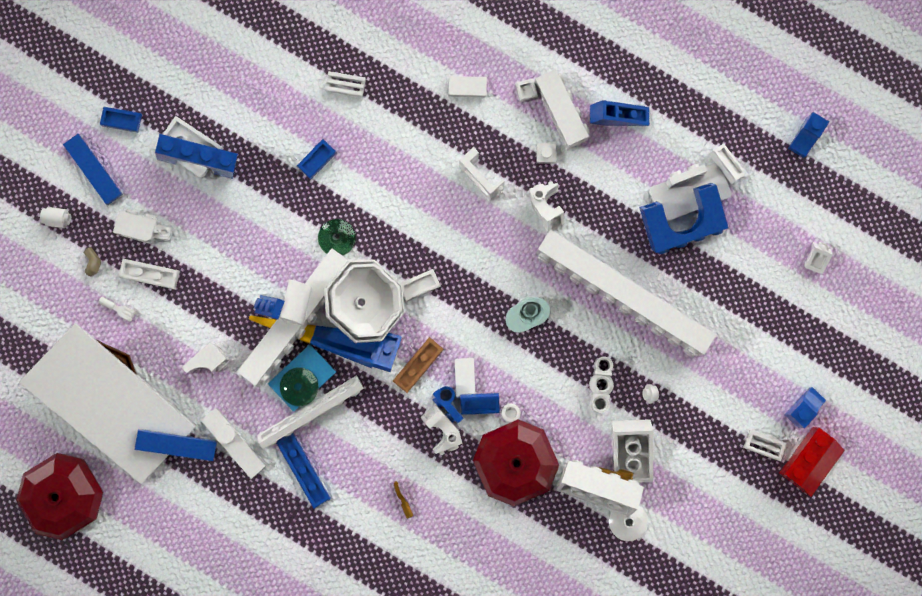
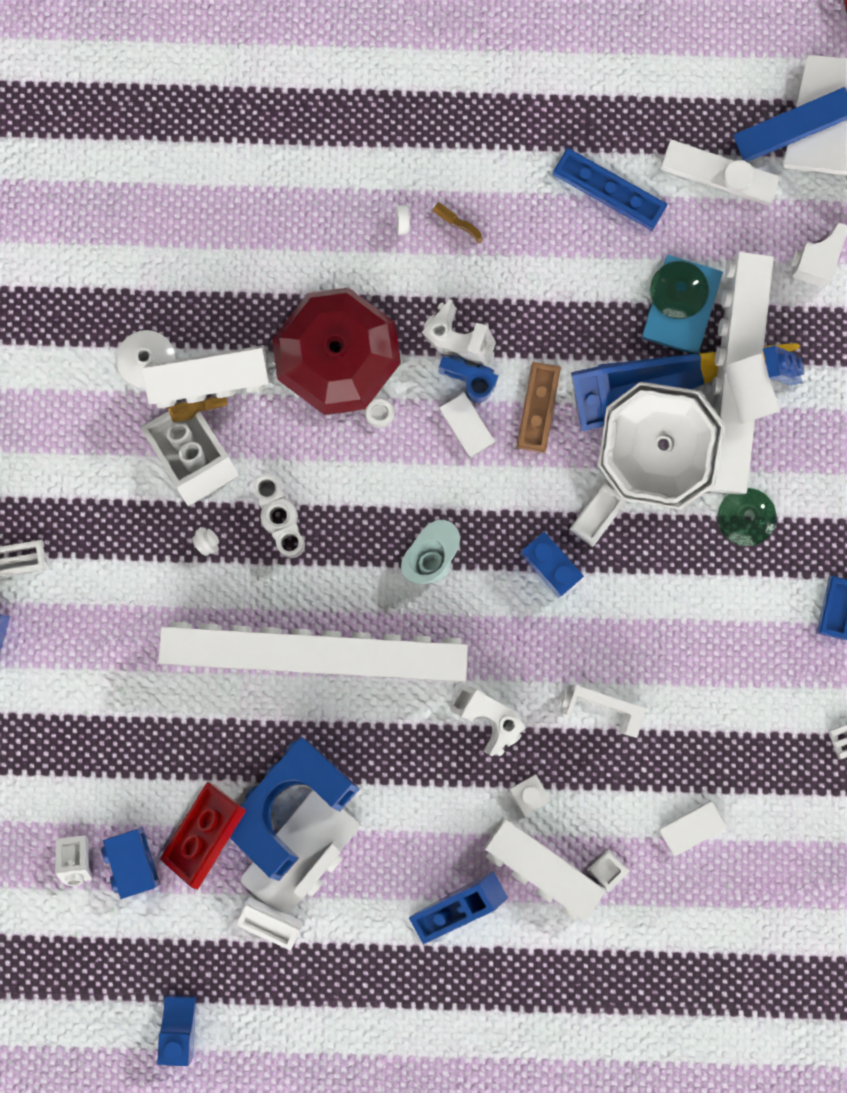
camera: 150 degrees right, 0 degrees up
(306, 414) = (645, 265): white plate -> none
(434, 519) = (402, 220): none -> white tile
(463, 270) = (551, 564): none -> blue brick
(480, 403) = (427, 401): blue tile -> none
(739, 230) = (202, 835): none -> red tile
(787, 238) = (130, 863): none -> blue brick

